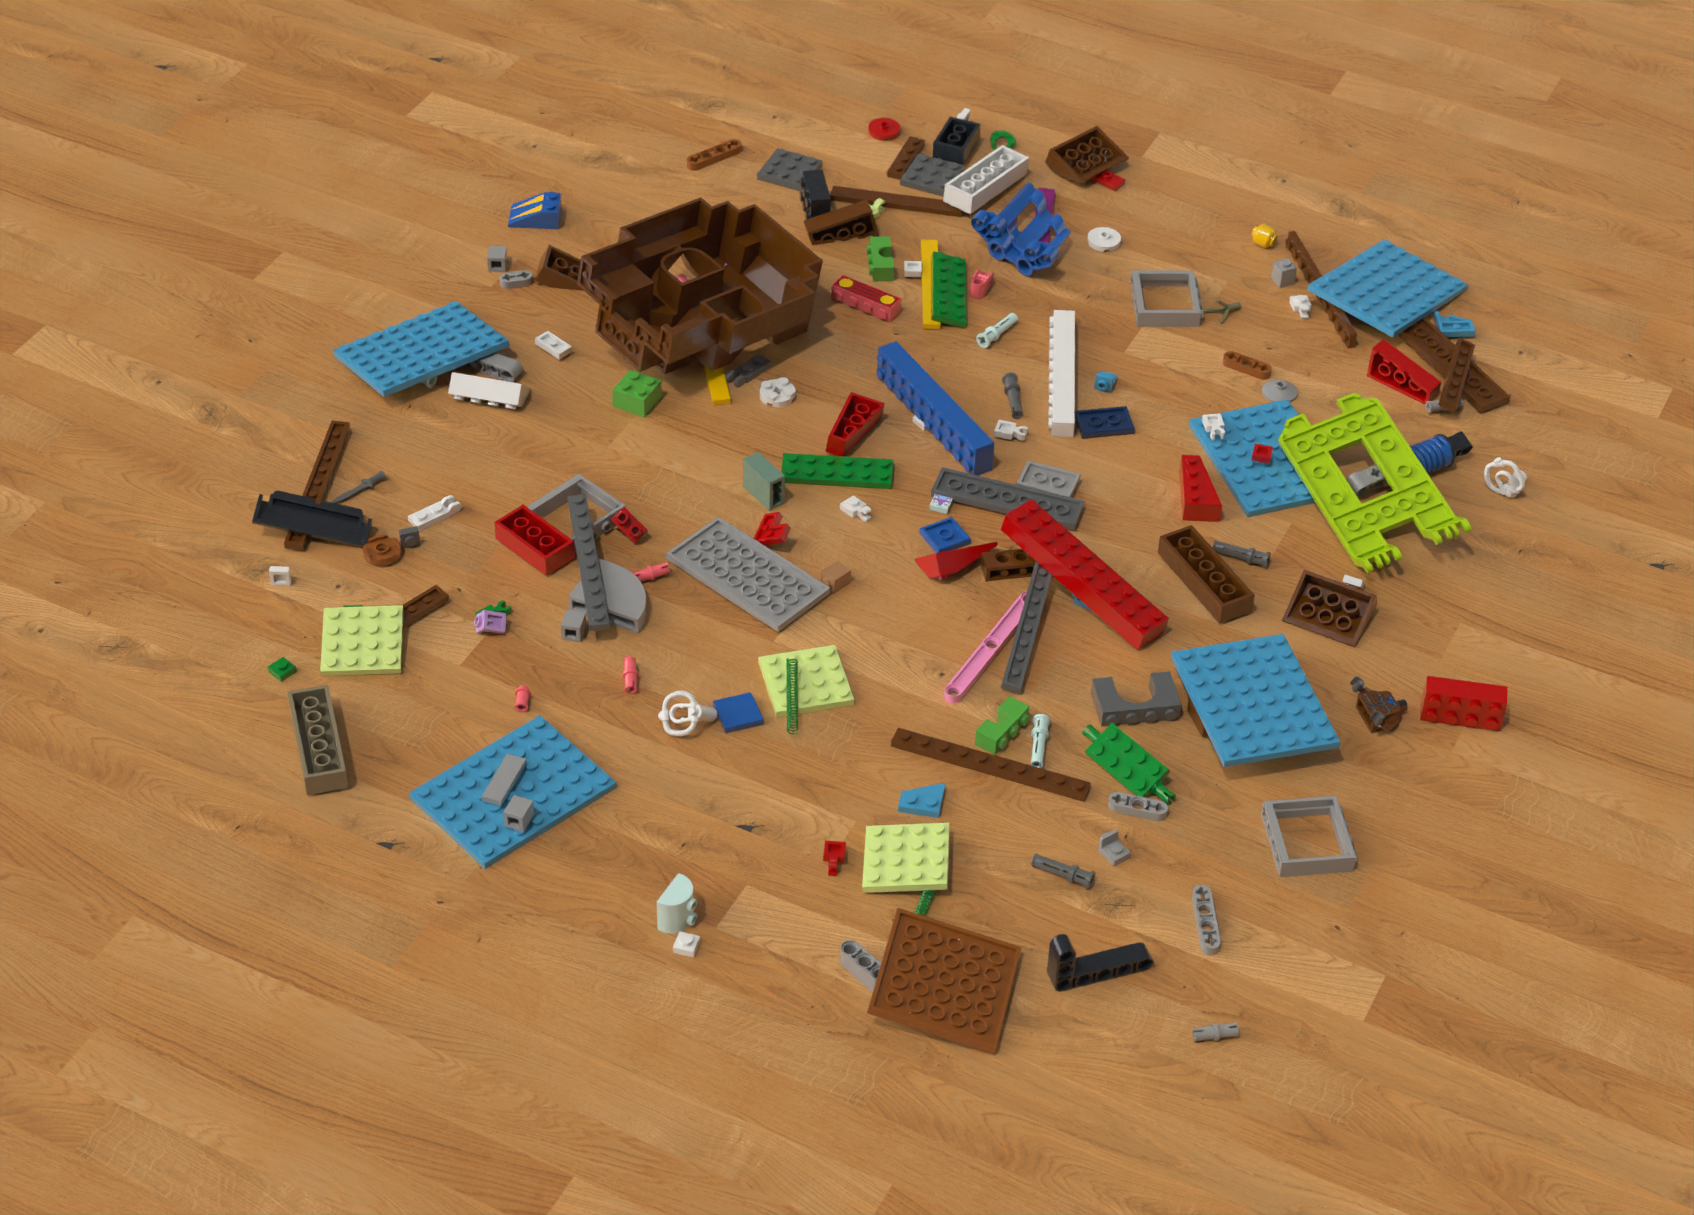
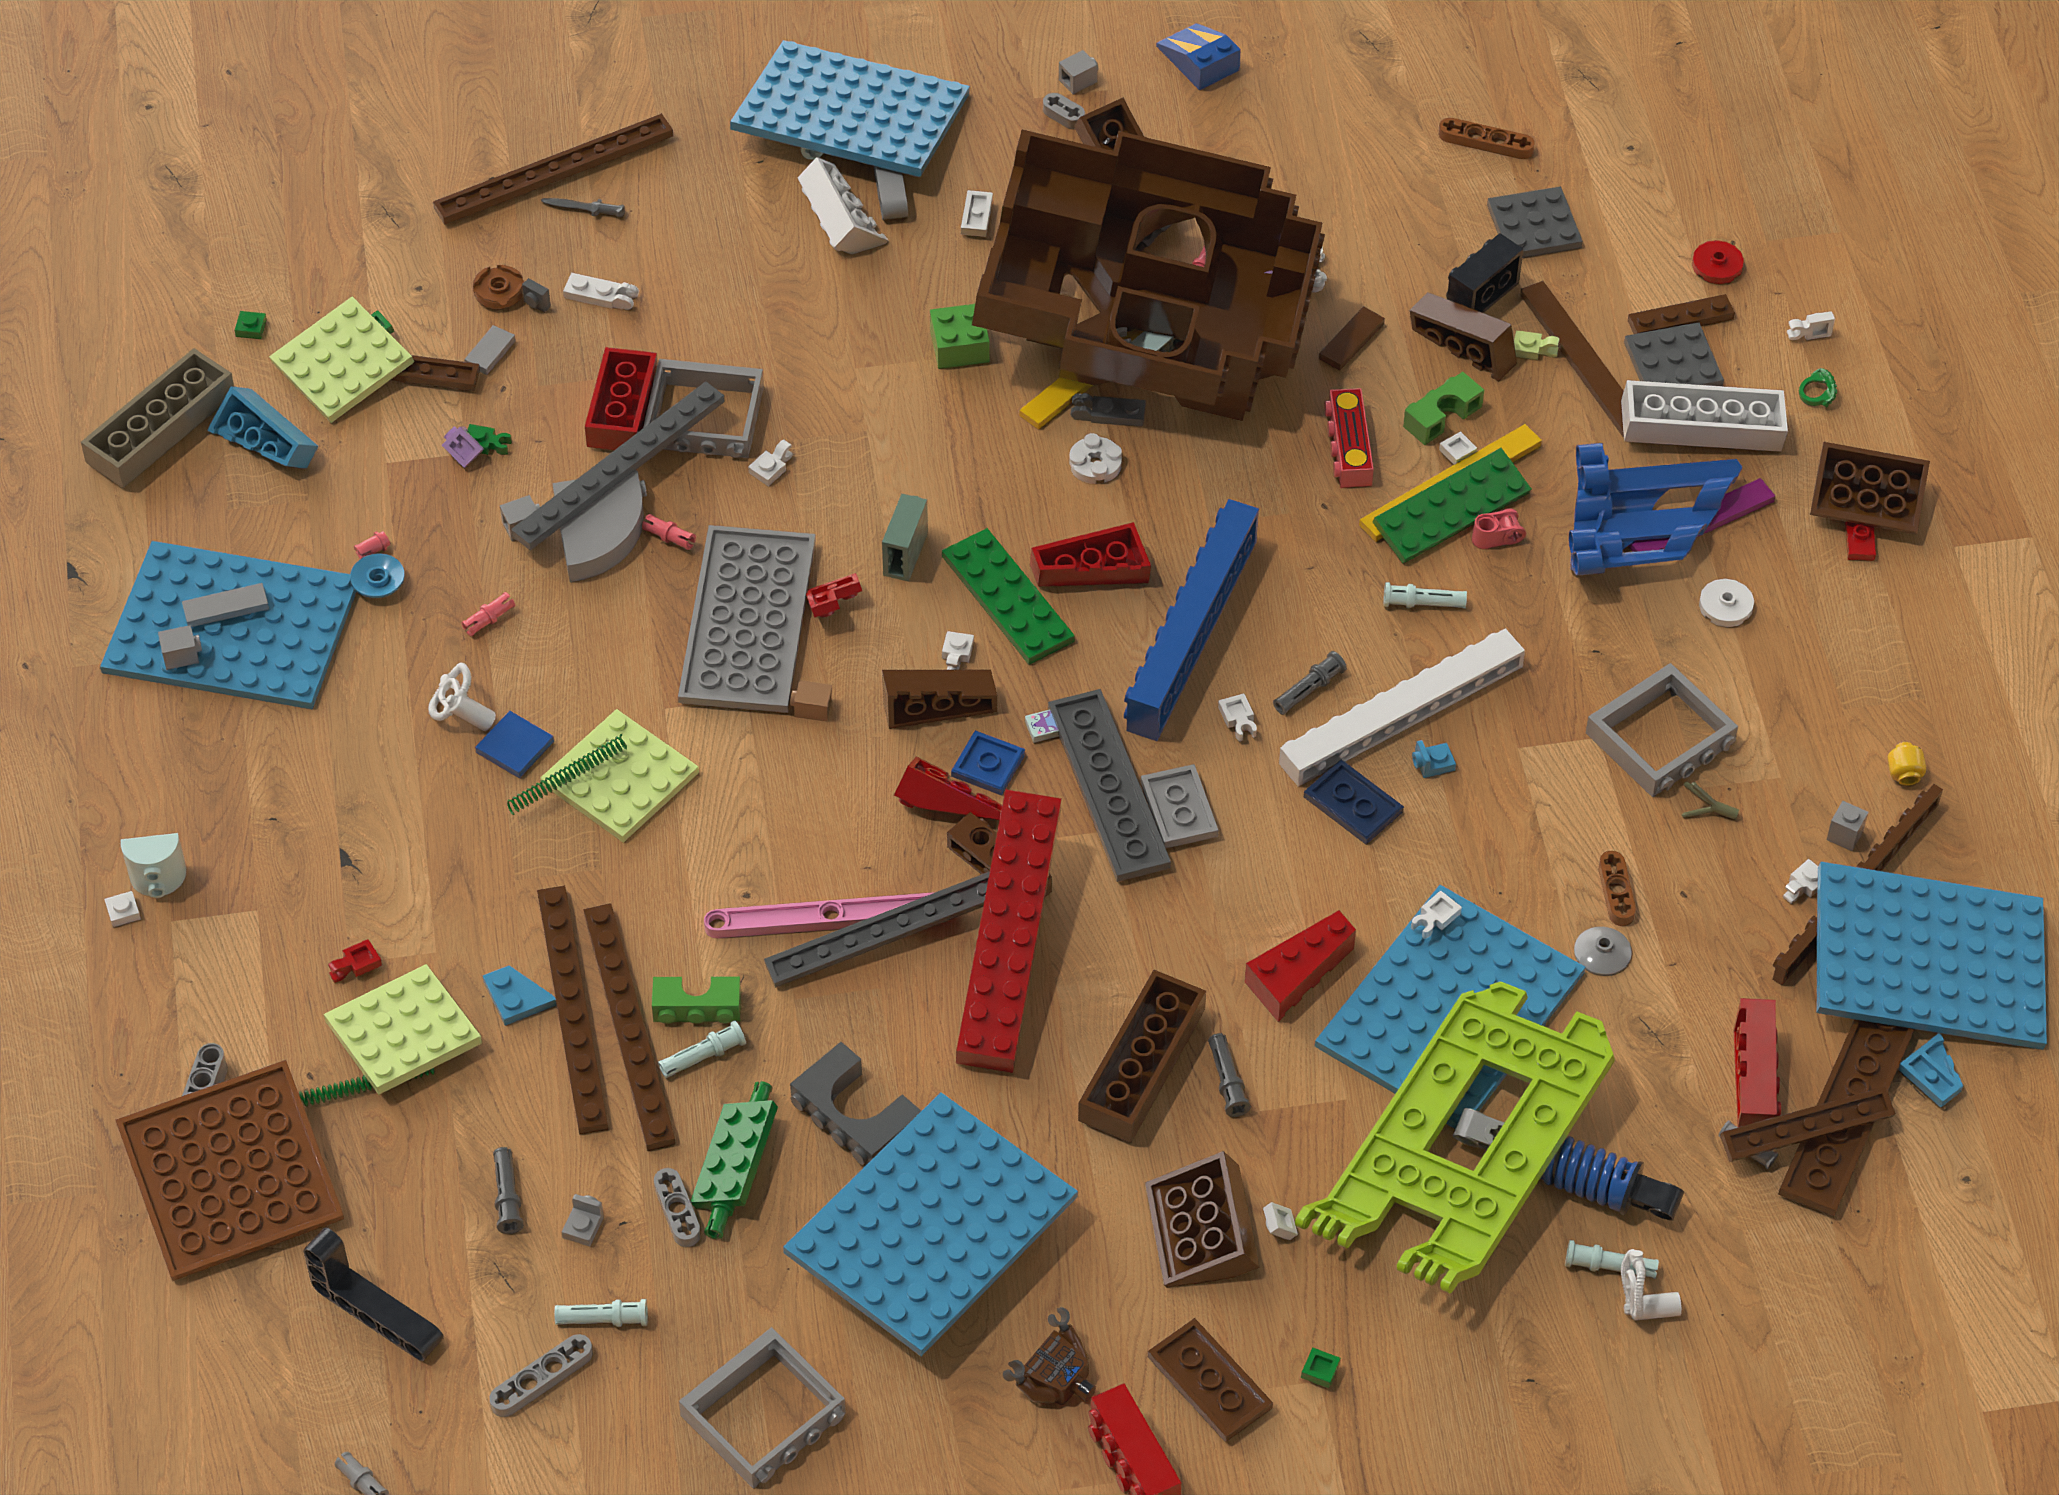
camera: 55 degrees right, 10 degrees up
(280, 576) = (382, 231): white plate -> none
(304, 517) = (481, 193): black slope -> none
(370, 702) = (260, 427): none -> dark azure wedge
(424, 576) = (491, 349): none -> light grey tile
(550, 705) = (377, 575): none -> dark azure dish
(629, 525) = (722, 465): red hips -> none
(644, 512) = (771, 466): none -> white plate
(884, 528) = (936, 695): none -> reddish brown wedge
(956, 140) = (1756, 343): black brick -> none
(956, 782) = (572, 1010): none -> reddish brown plate
(1190, 866) = (615, 1313): none -> light aqua pin
(1262, 453) = (1429, 993): red plate -> none
(1431, 658) = (1210, 1379): none -> reddish brown plate
(1457, 615) = (1320, 1367): none -> green plate
(1470, 487) = (1597, 1258): none -> light aqua pin

